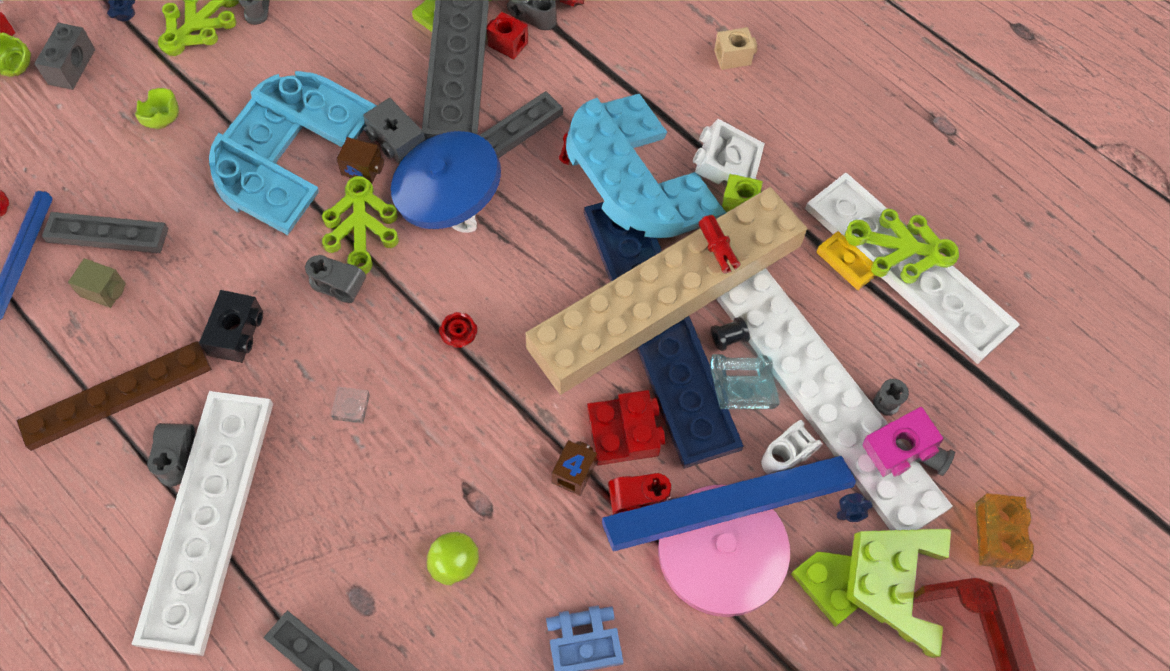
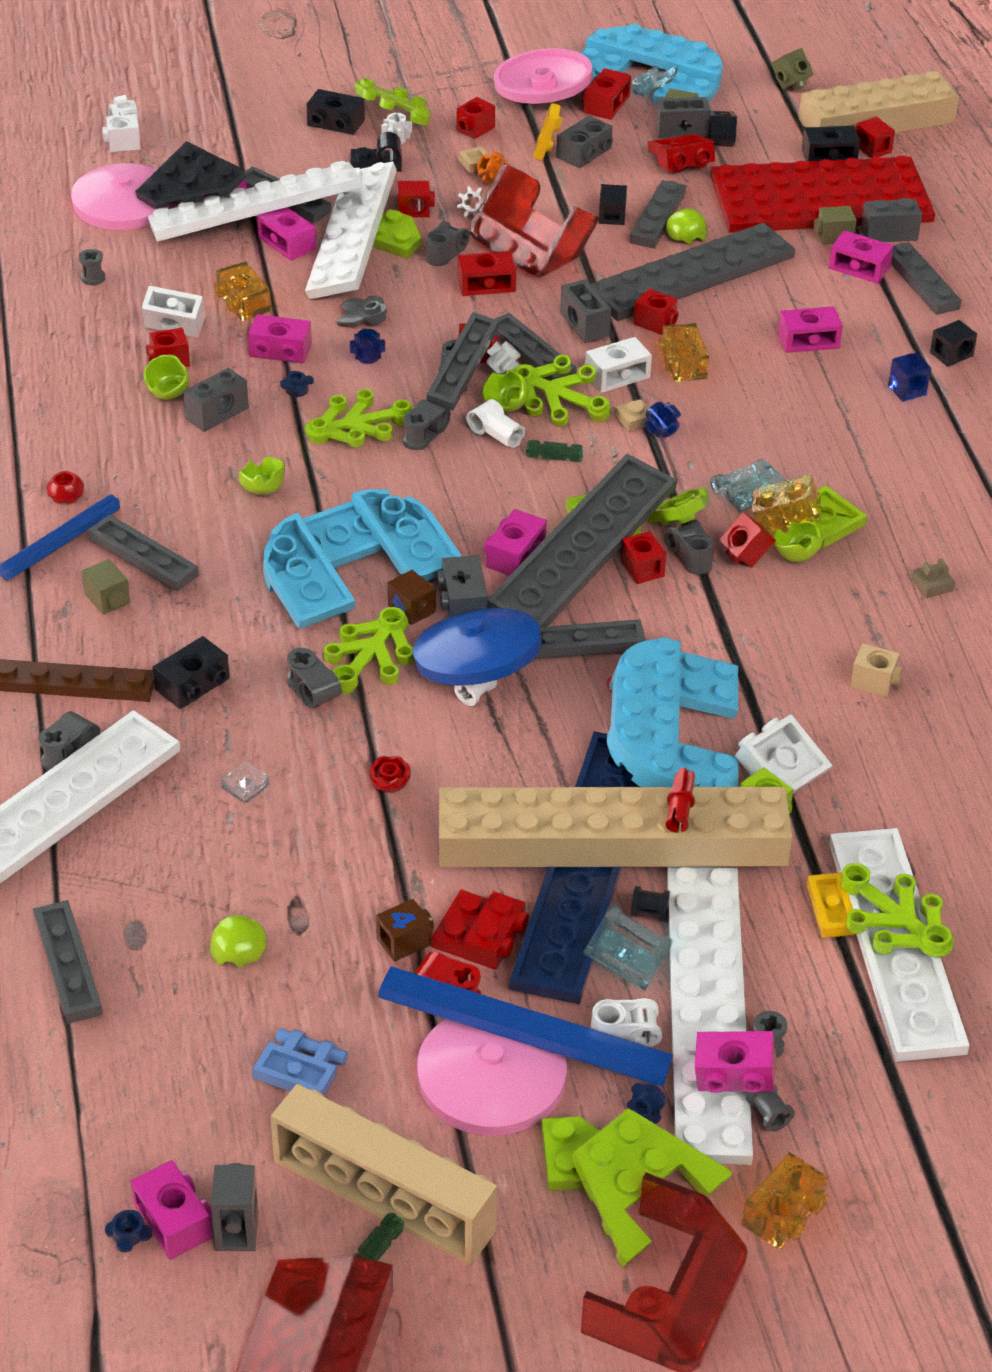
camera: 35 degrees right, 20 degrees down
(404, 70) = (514, 541): none -> dark pink brick

